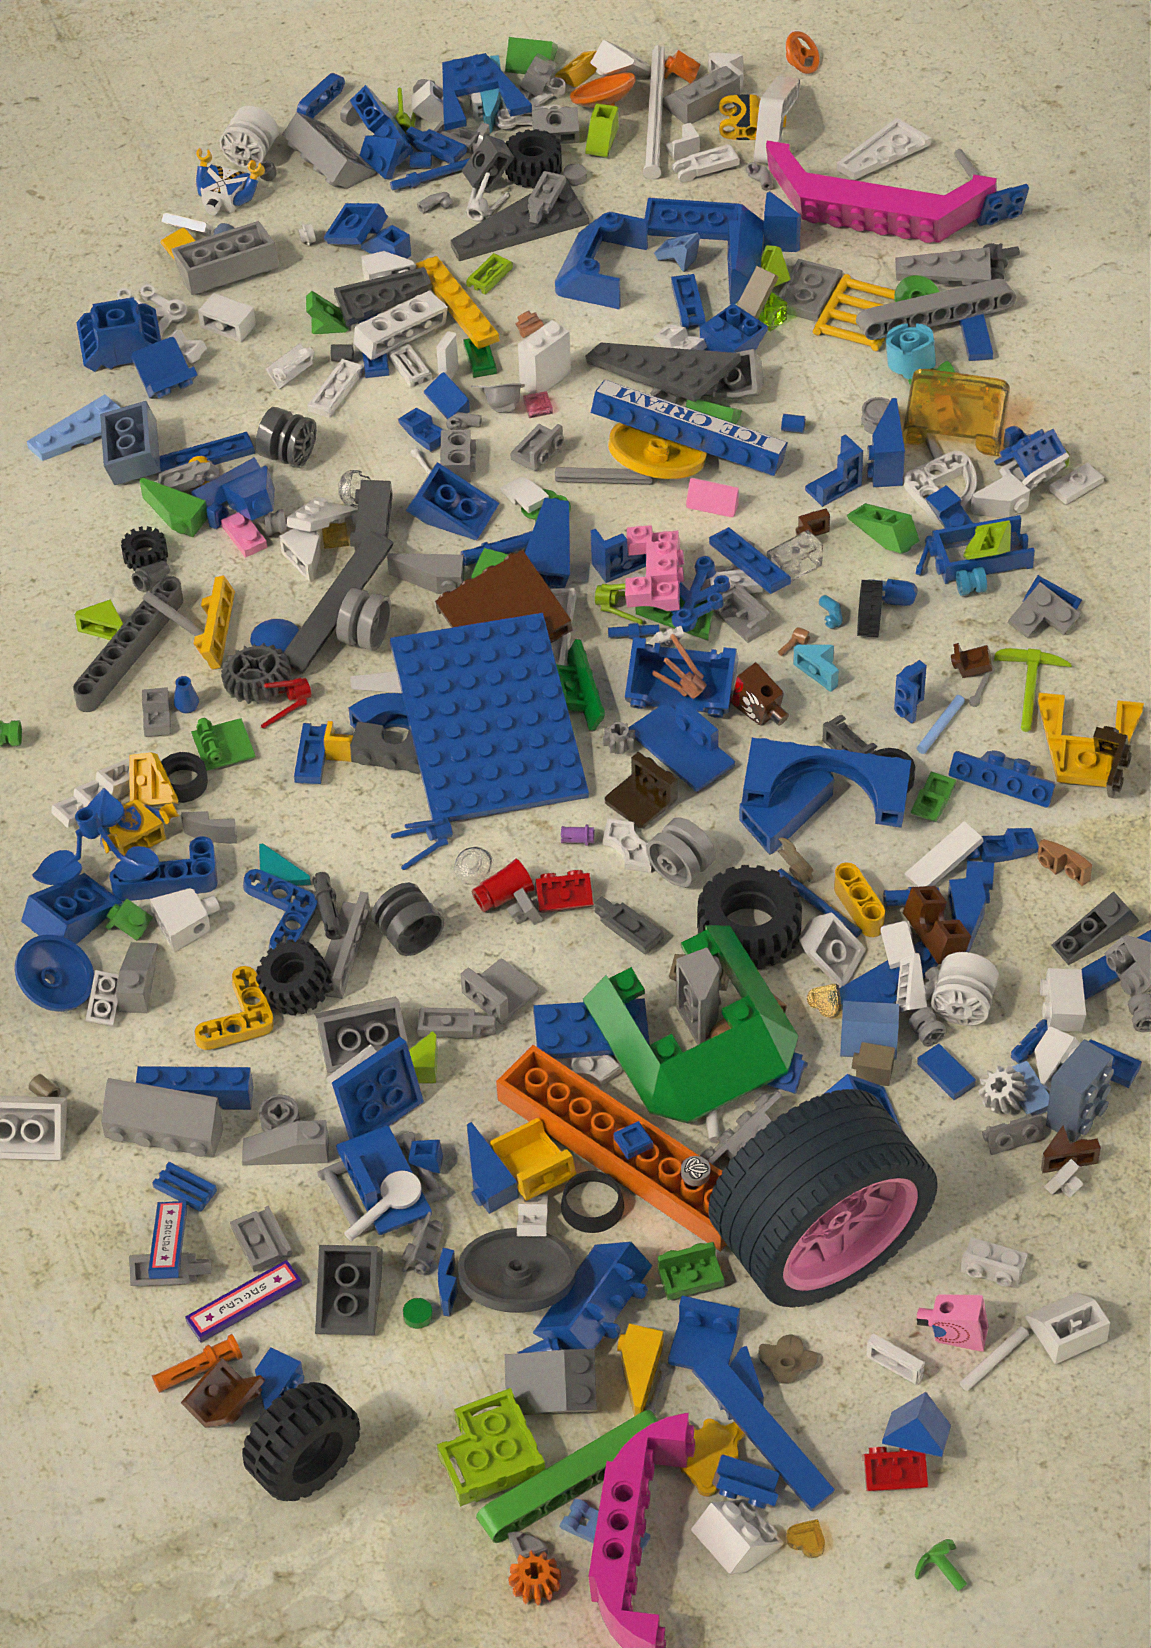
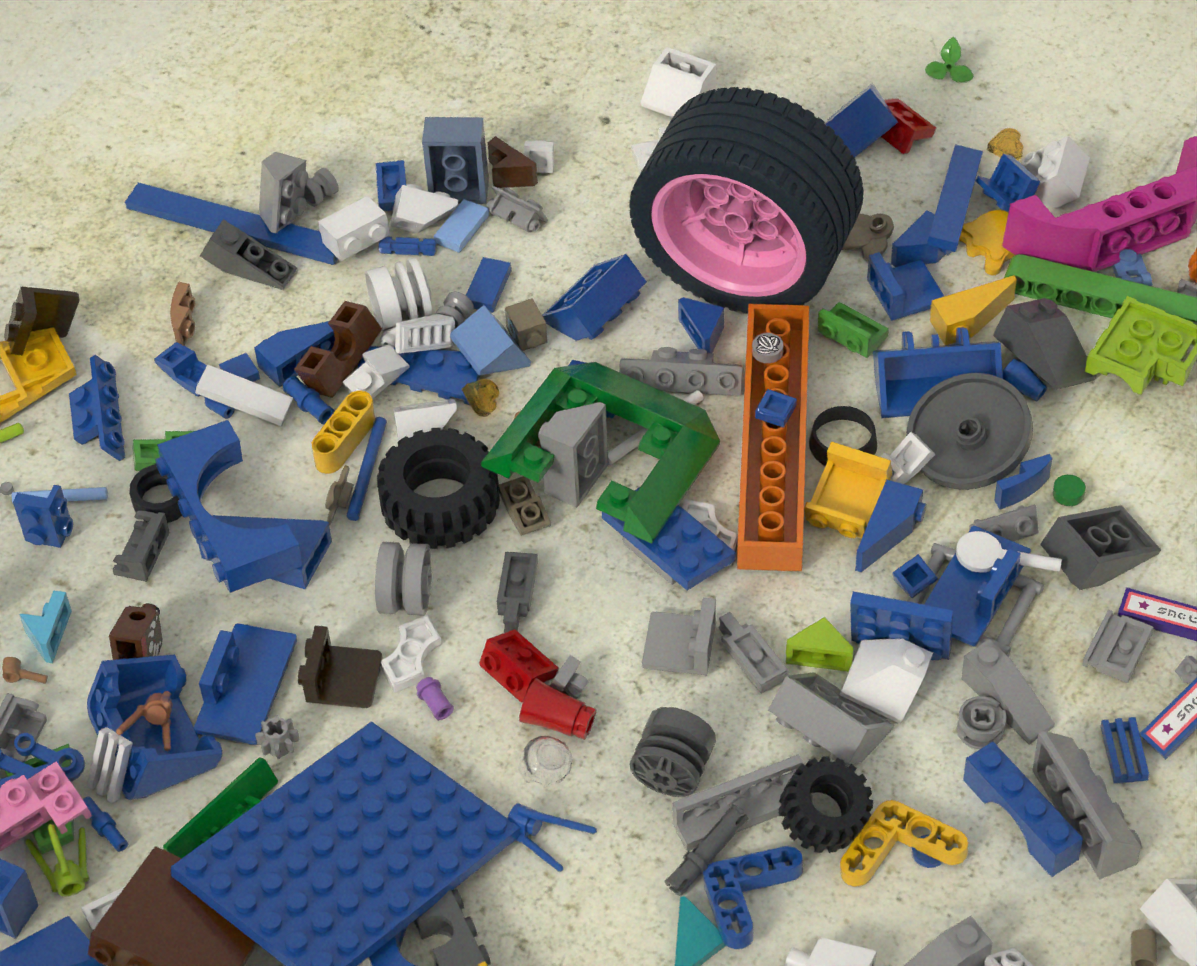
camera: 125 degrees left, 0 degrees up
(1003, 1089) = (484, 226): white gear -> none

